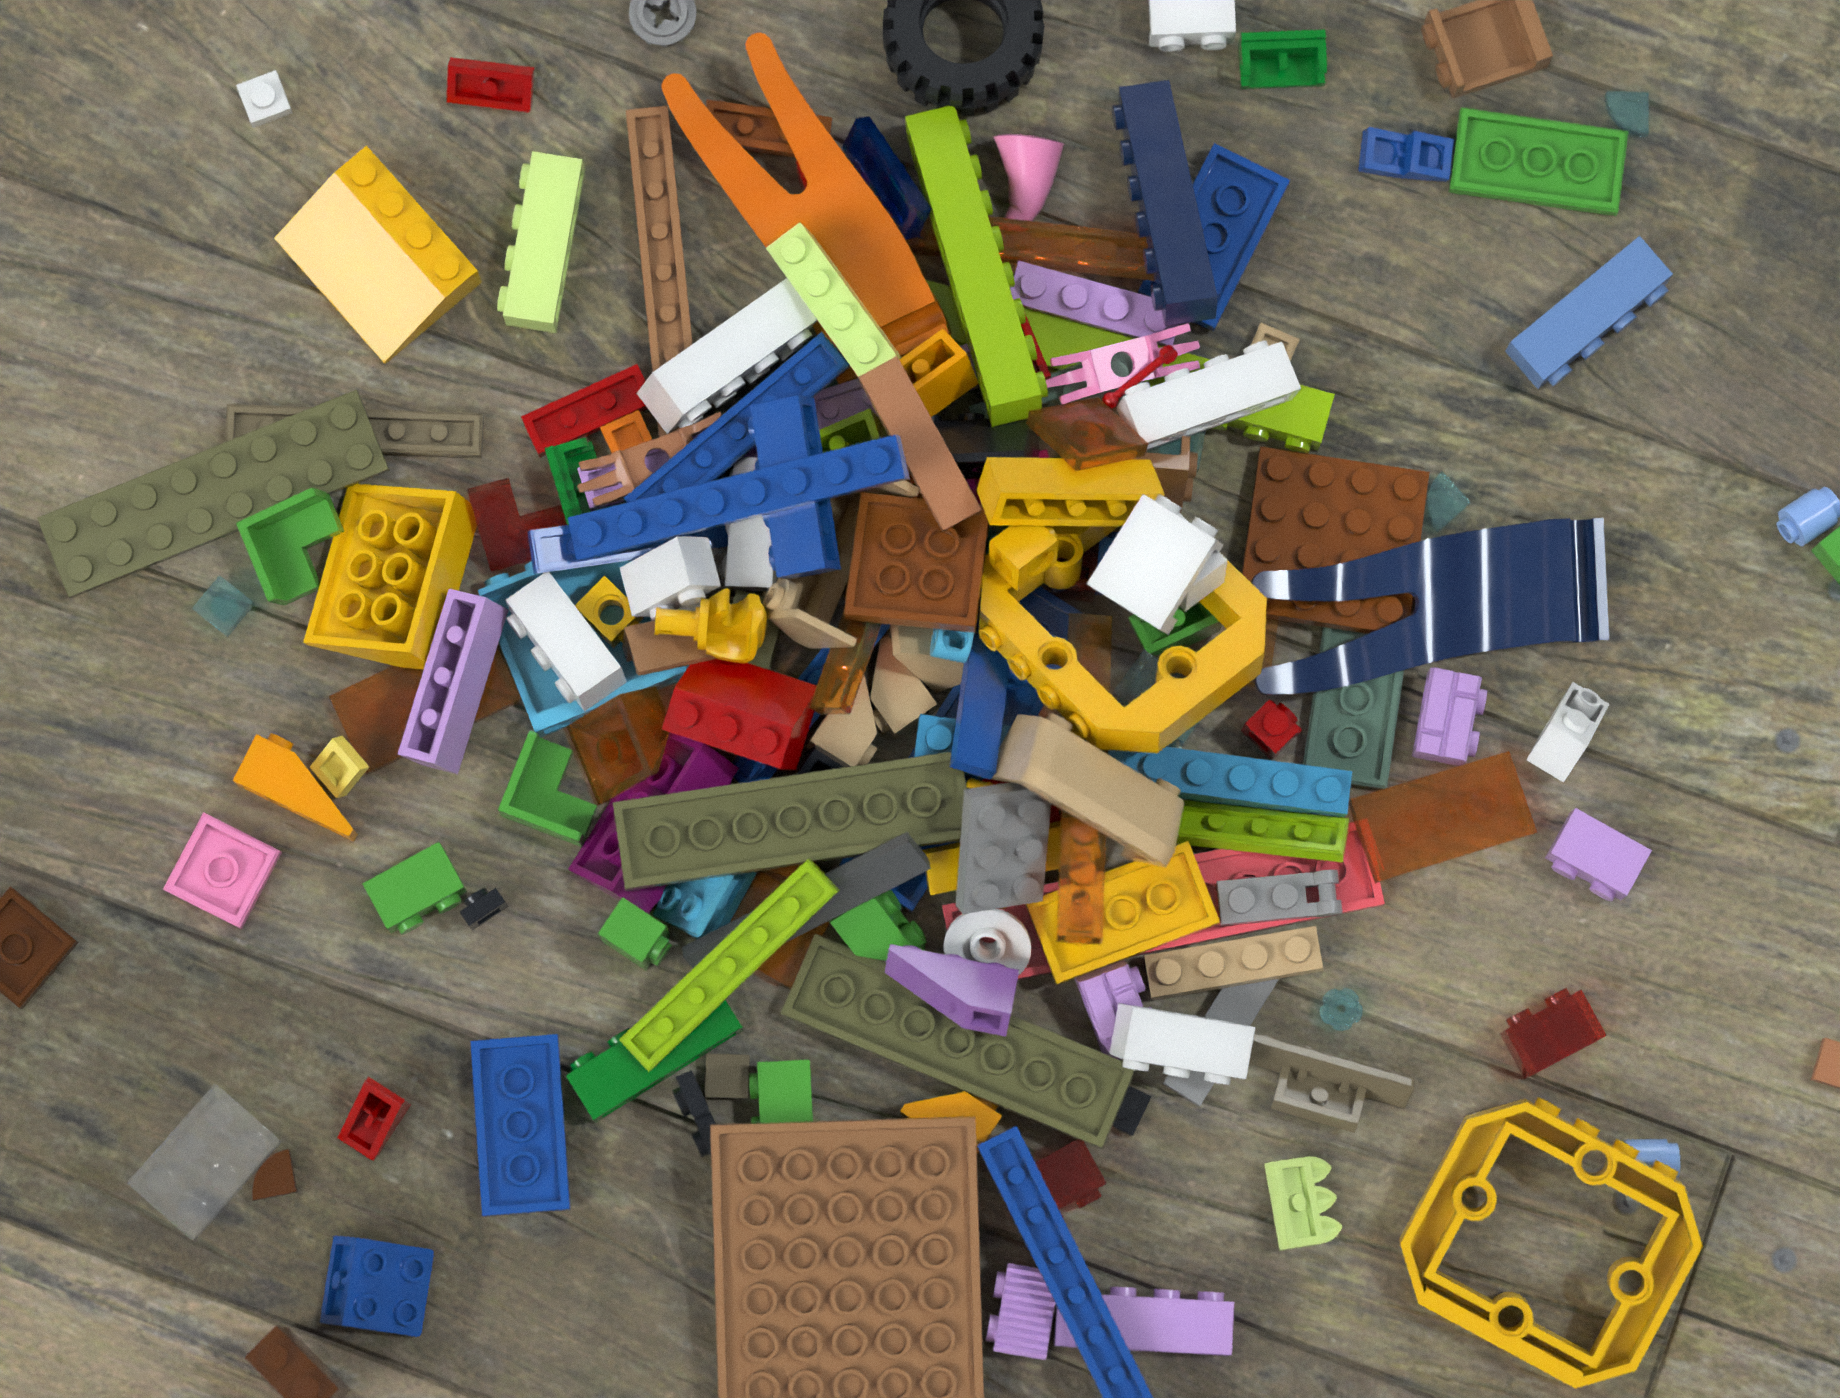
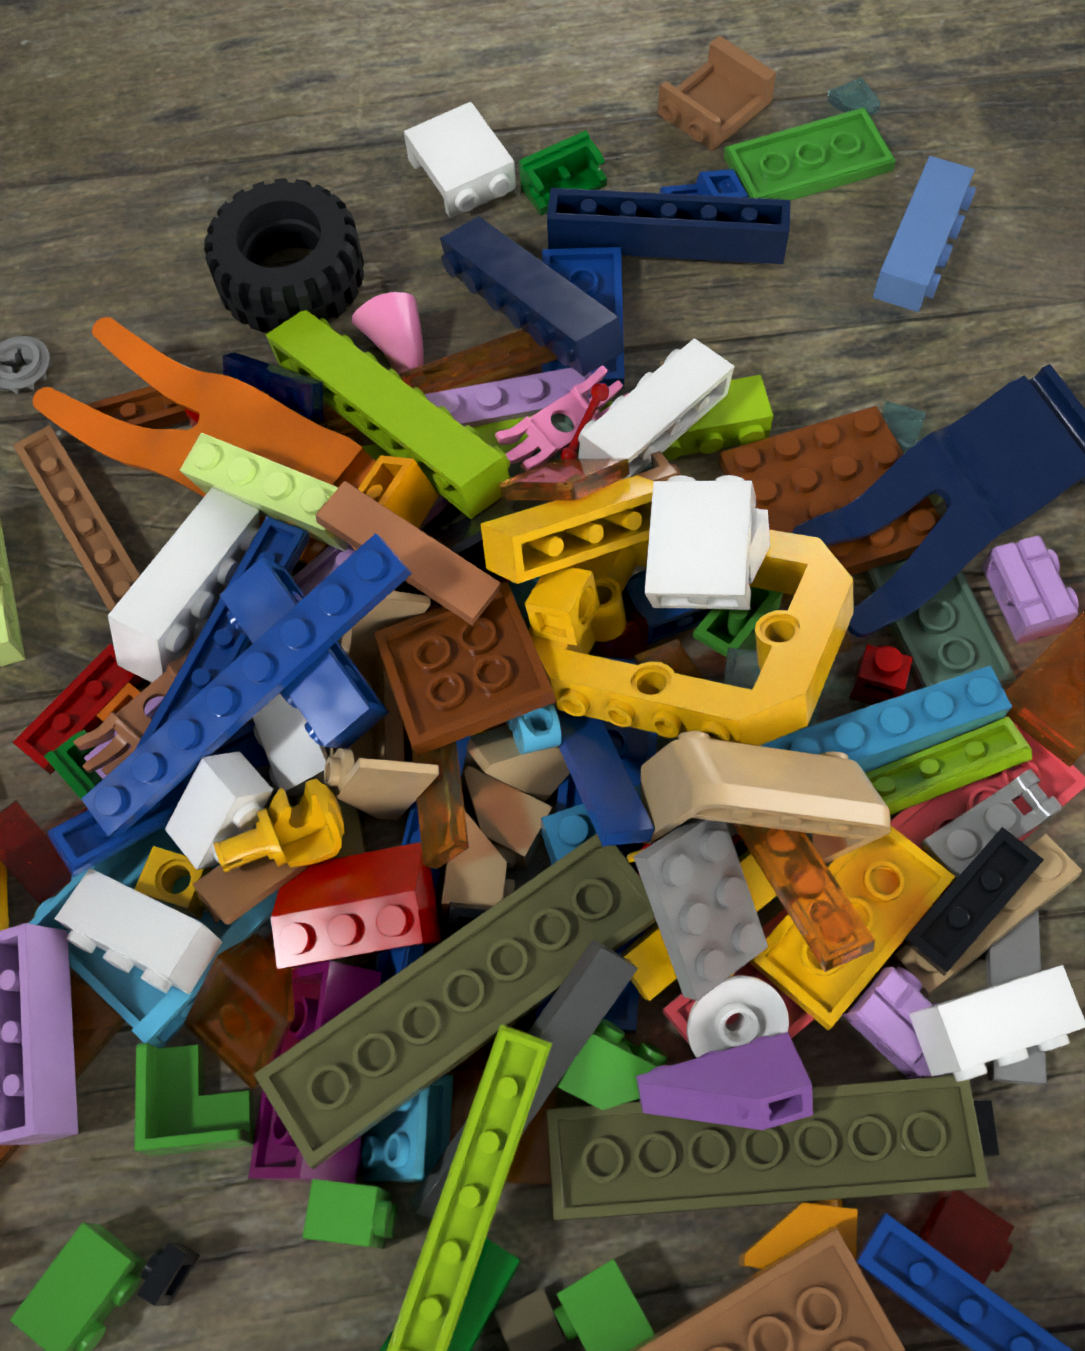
camera: 20 degrees left, 15 degrees down
(1220, 947) = (973, 901): none -> black plate
(1344, 182) = (670, 225): none -> dark blue brick

